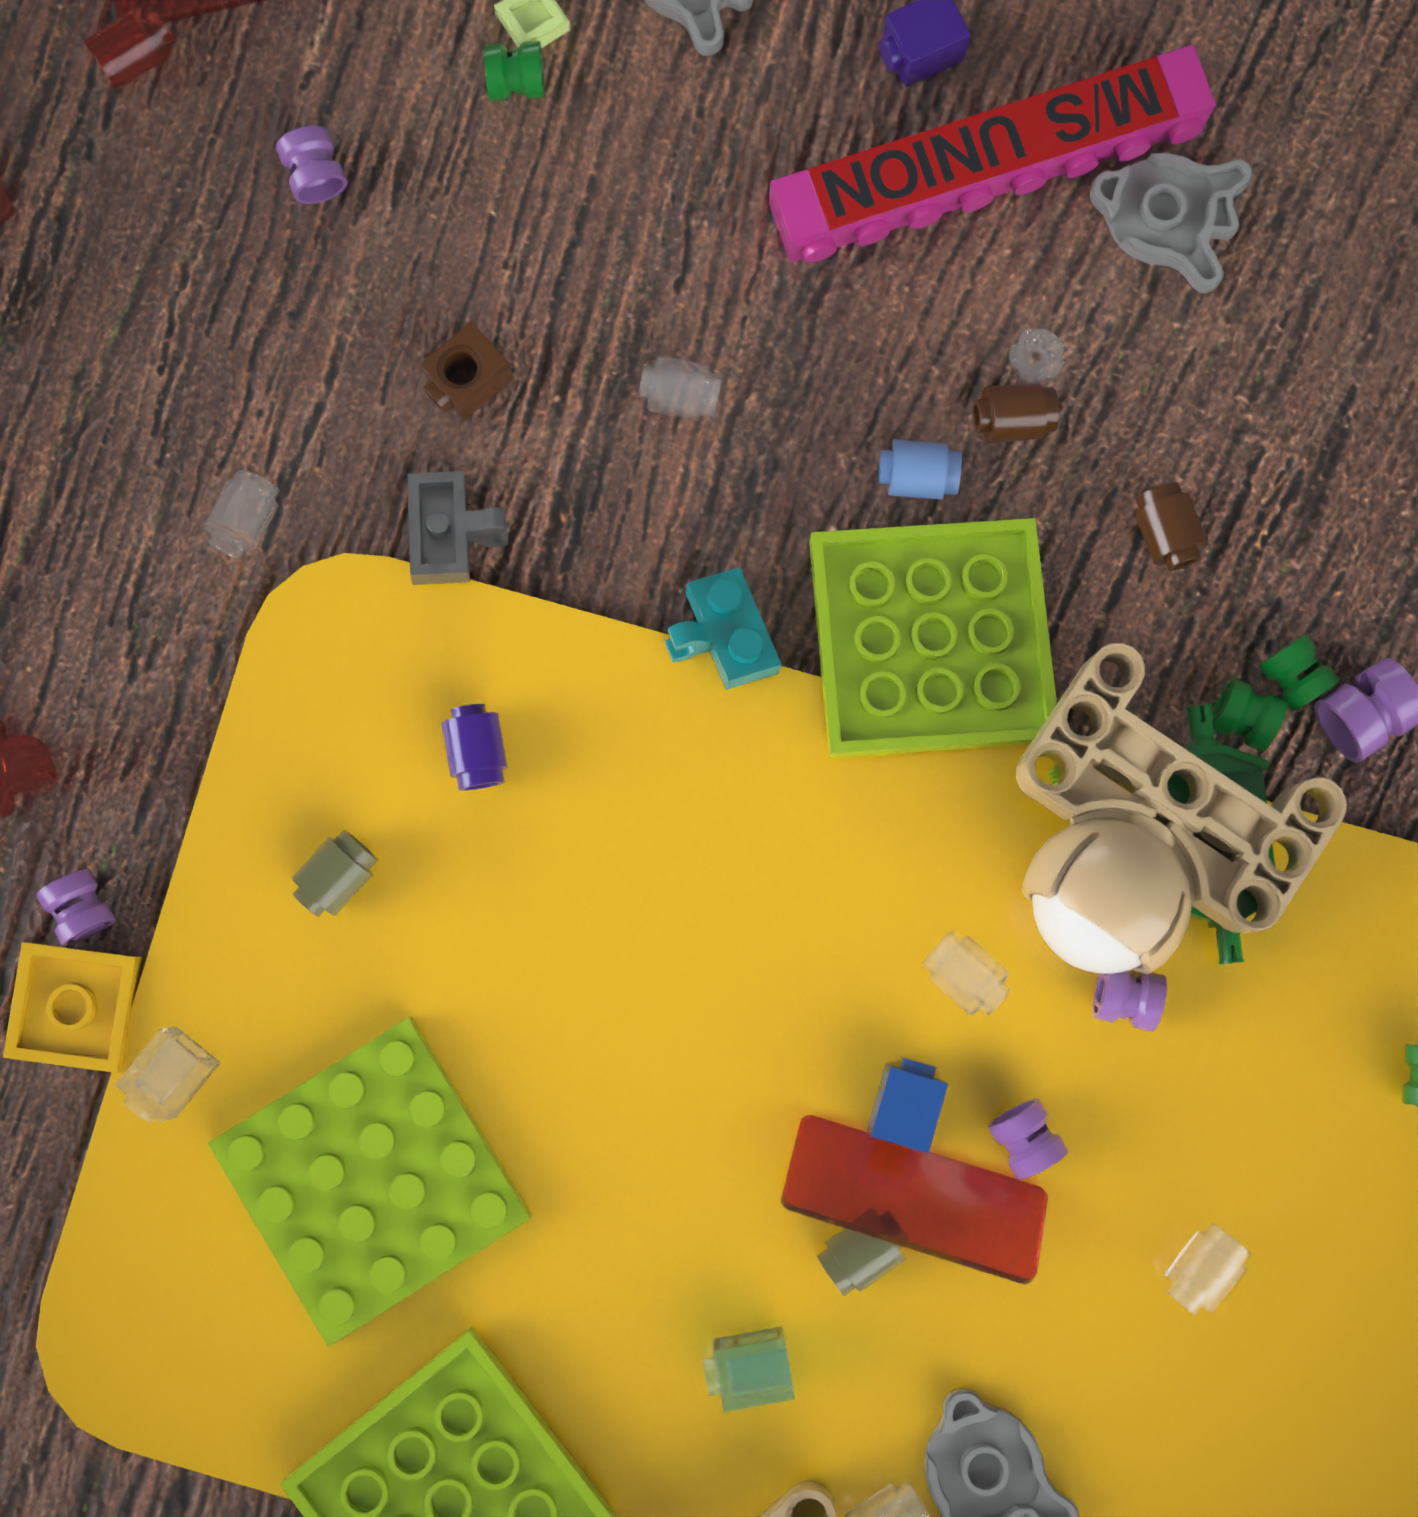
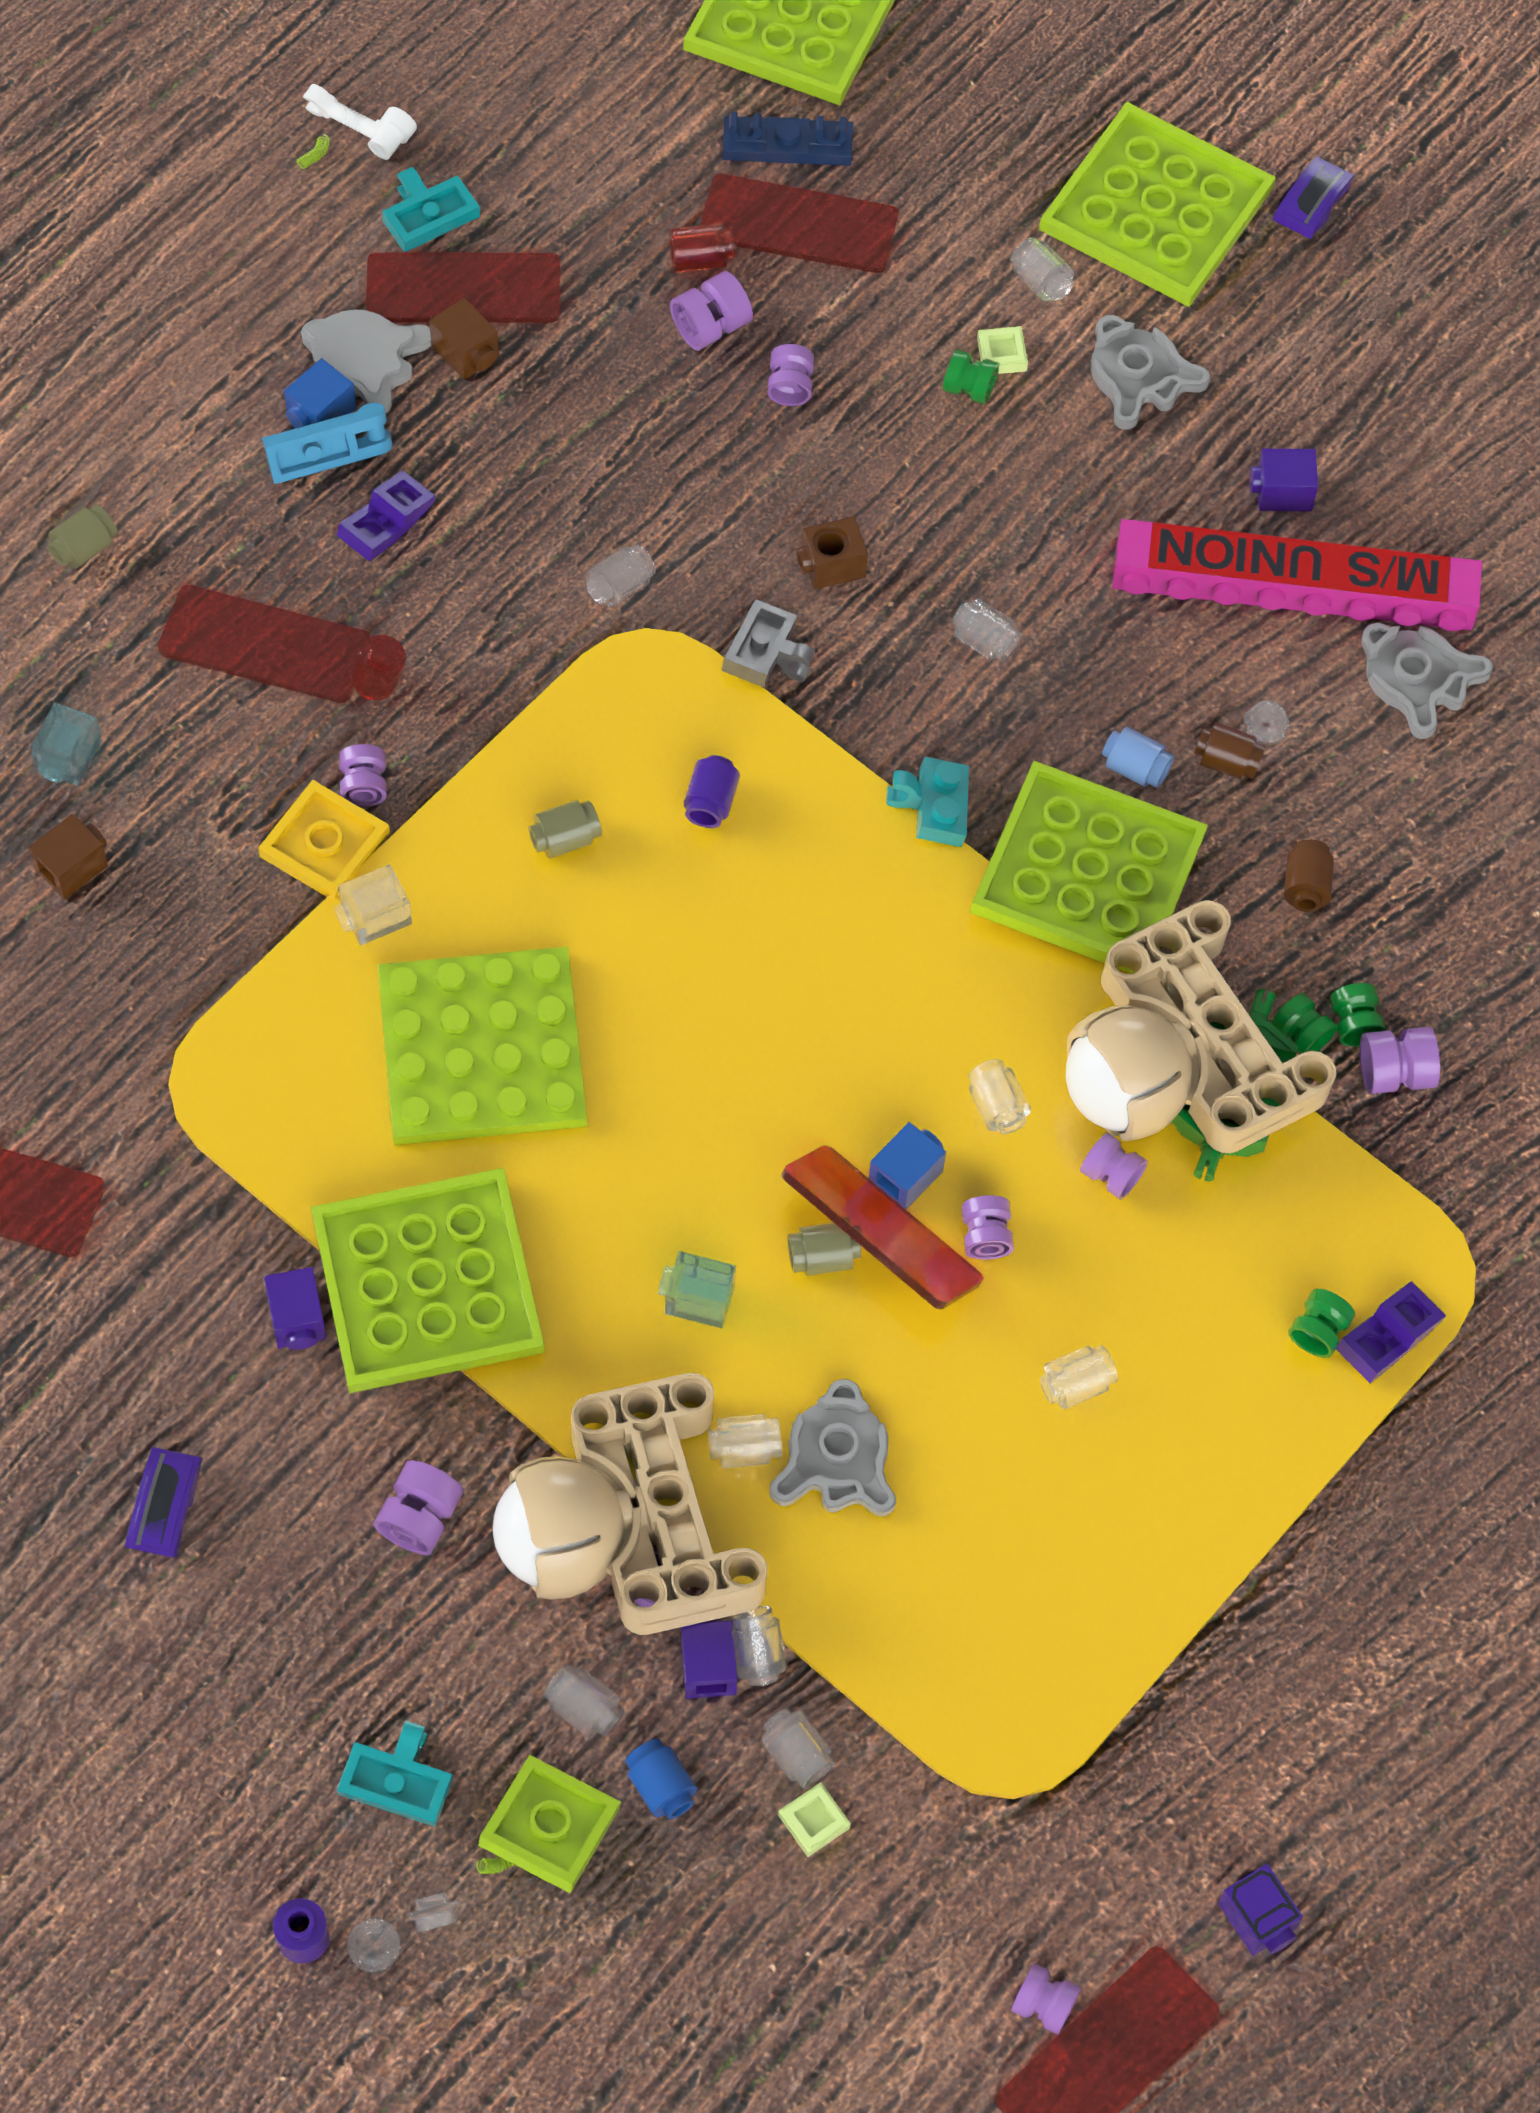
camera: 20 degrees right, 20 degrees down
(194, 110) = (714, 309): none -> medium lavender wheel

